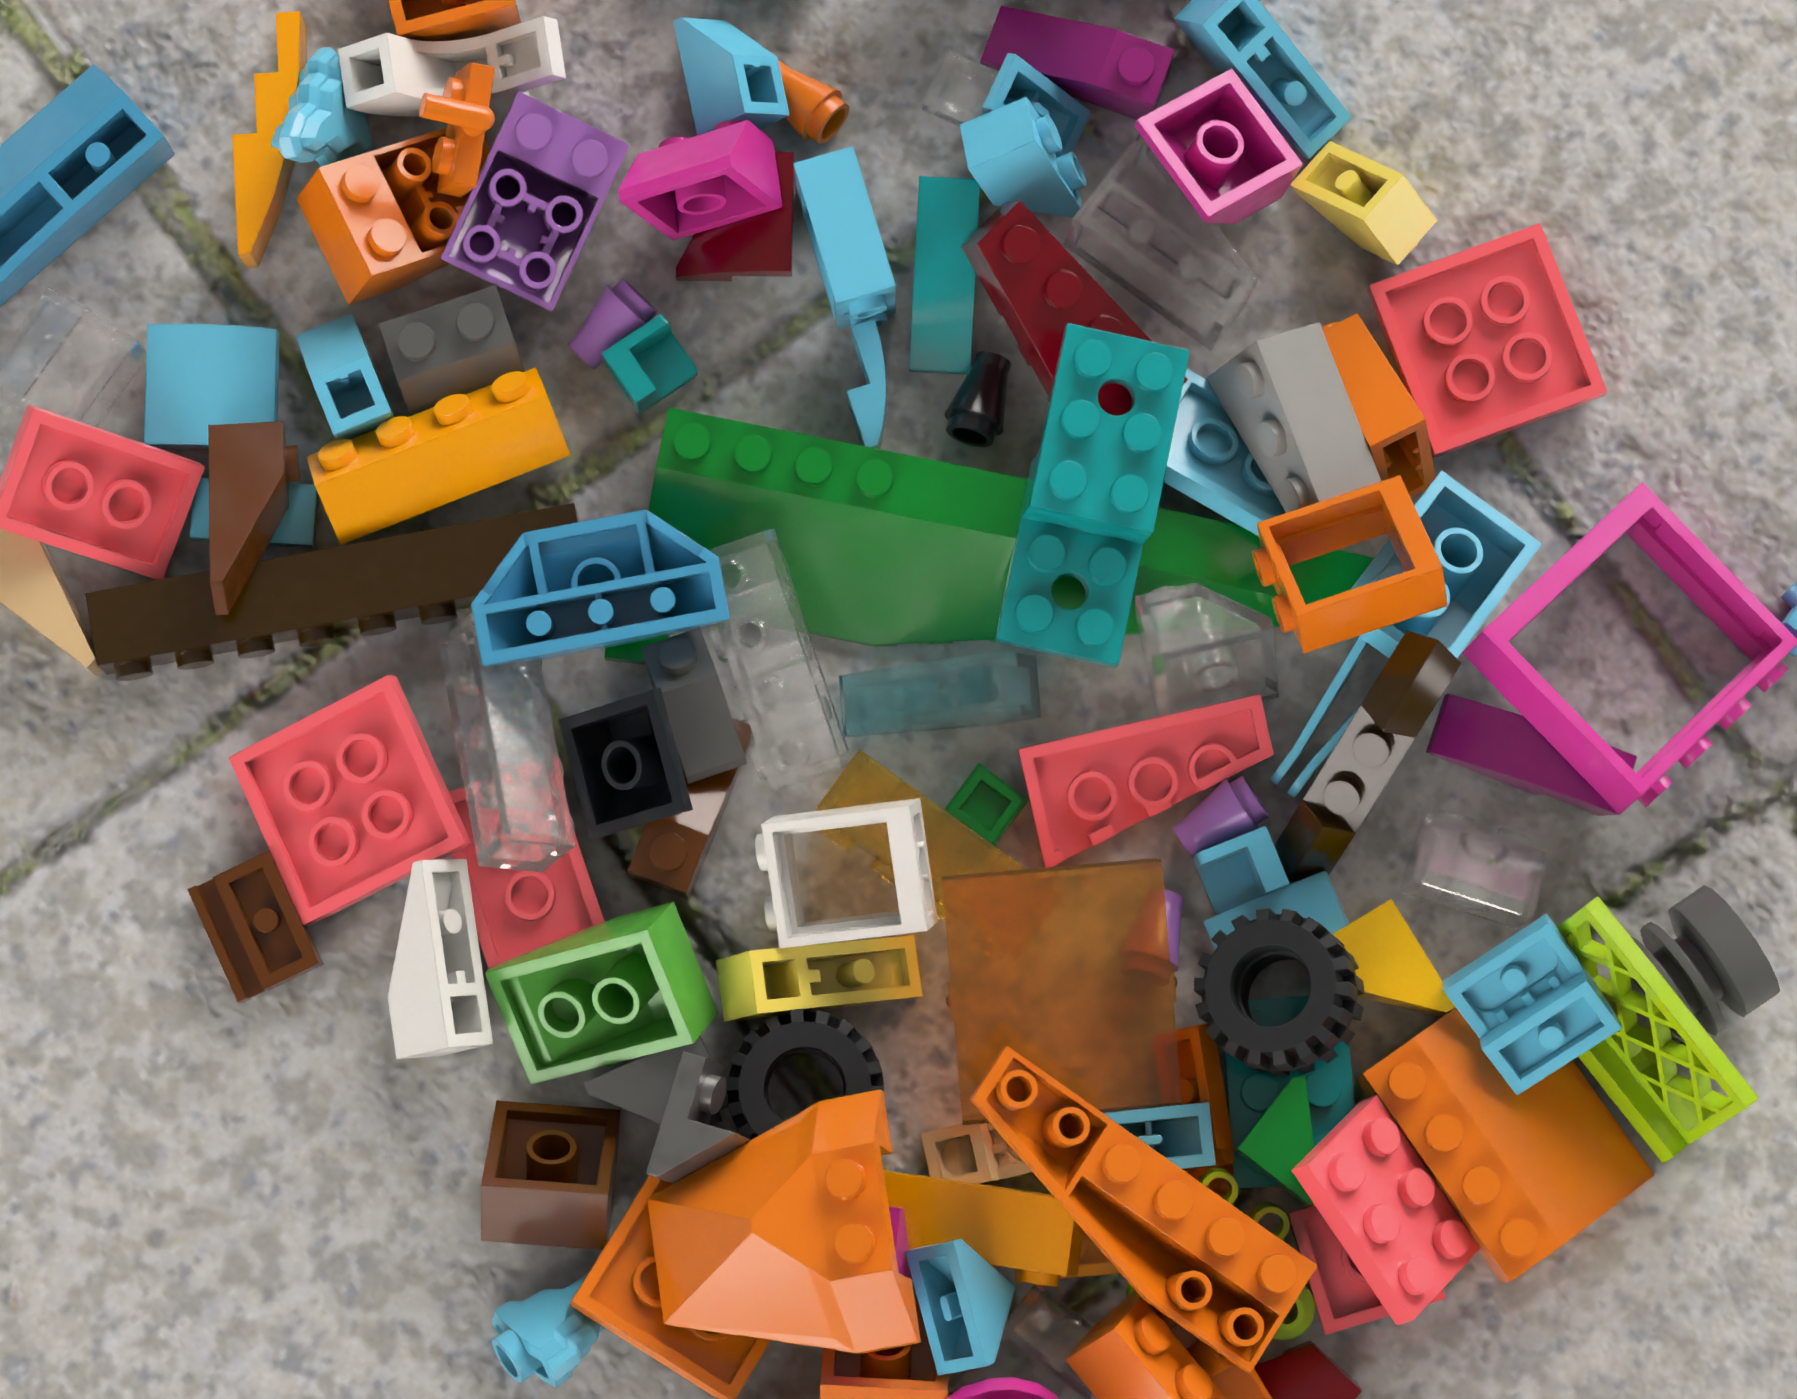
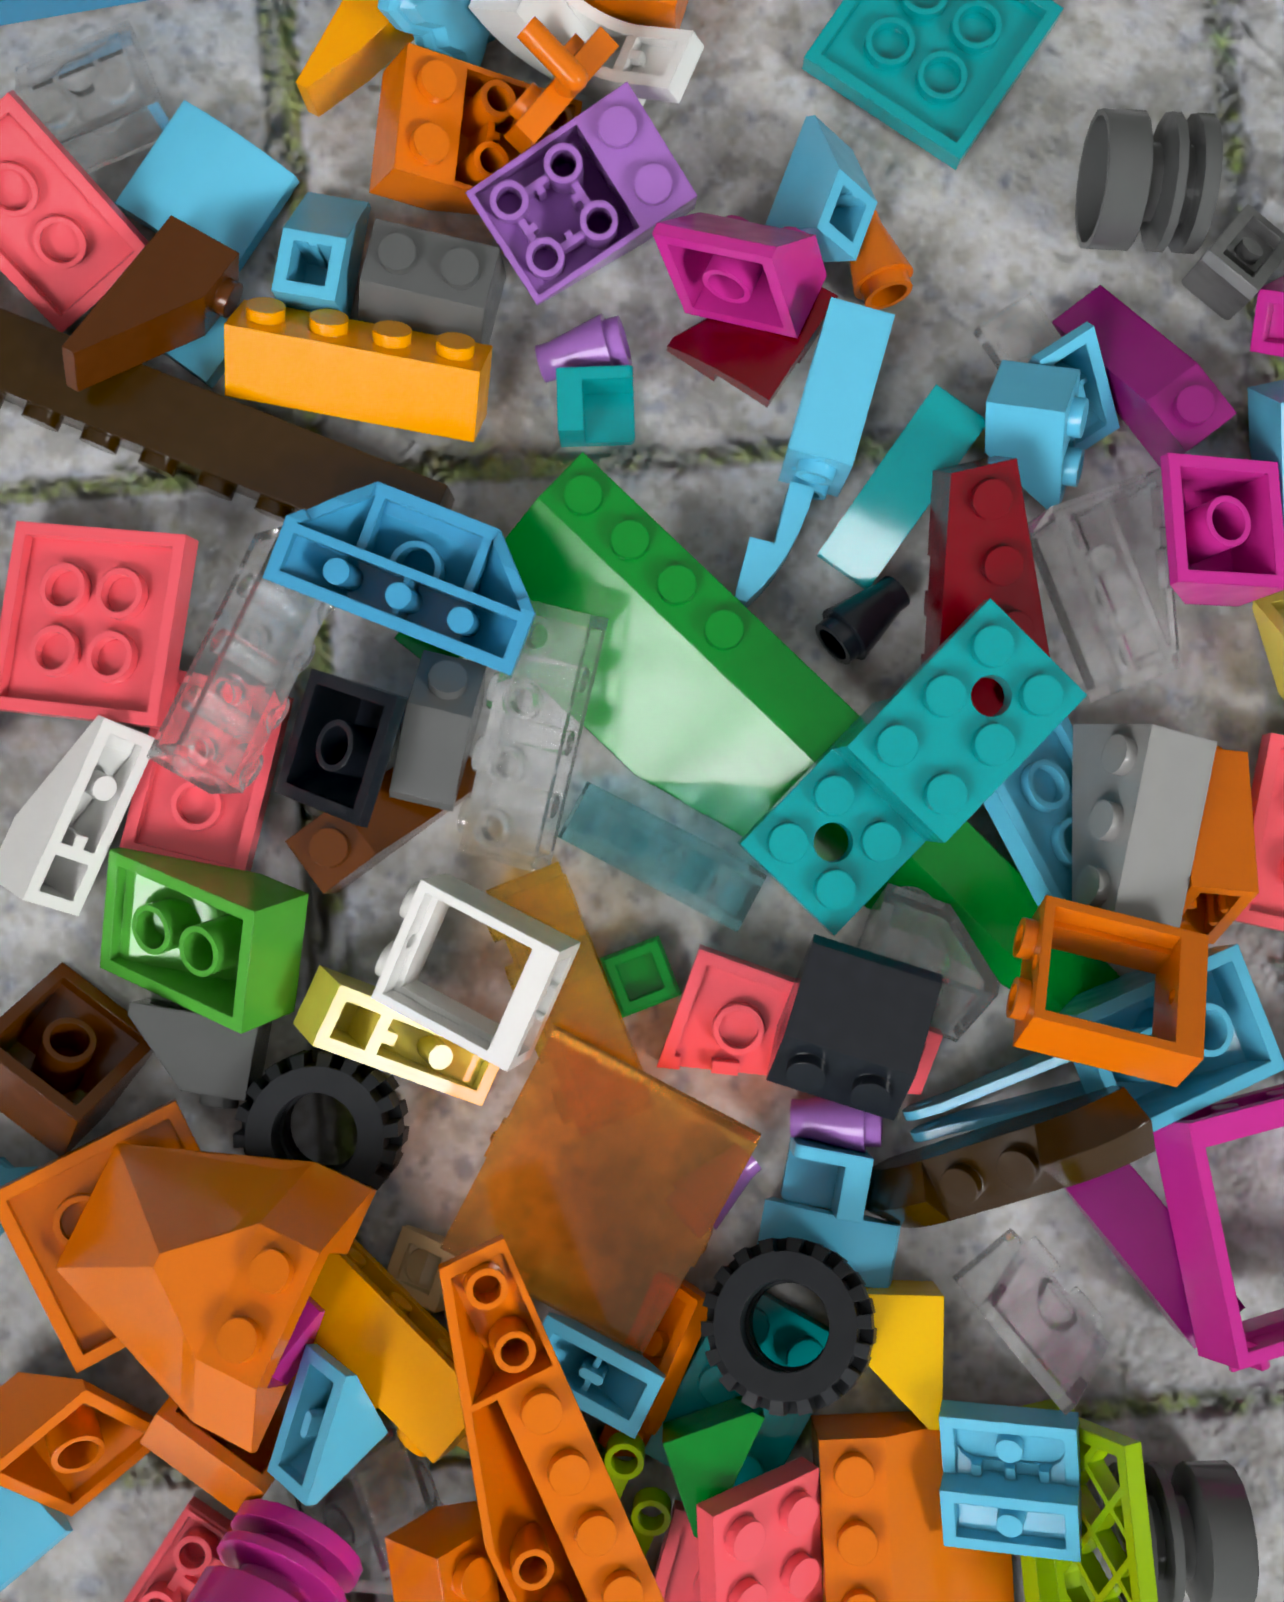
camera: 35 degrees right, 5 degrees up
(684, 1136) = (182, 1110): flat silver slope -> none
(1178, 725) = (854, 1027): none -> black slope

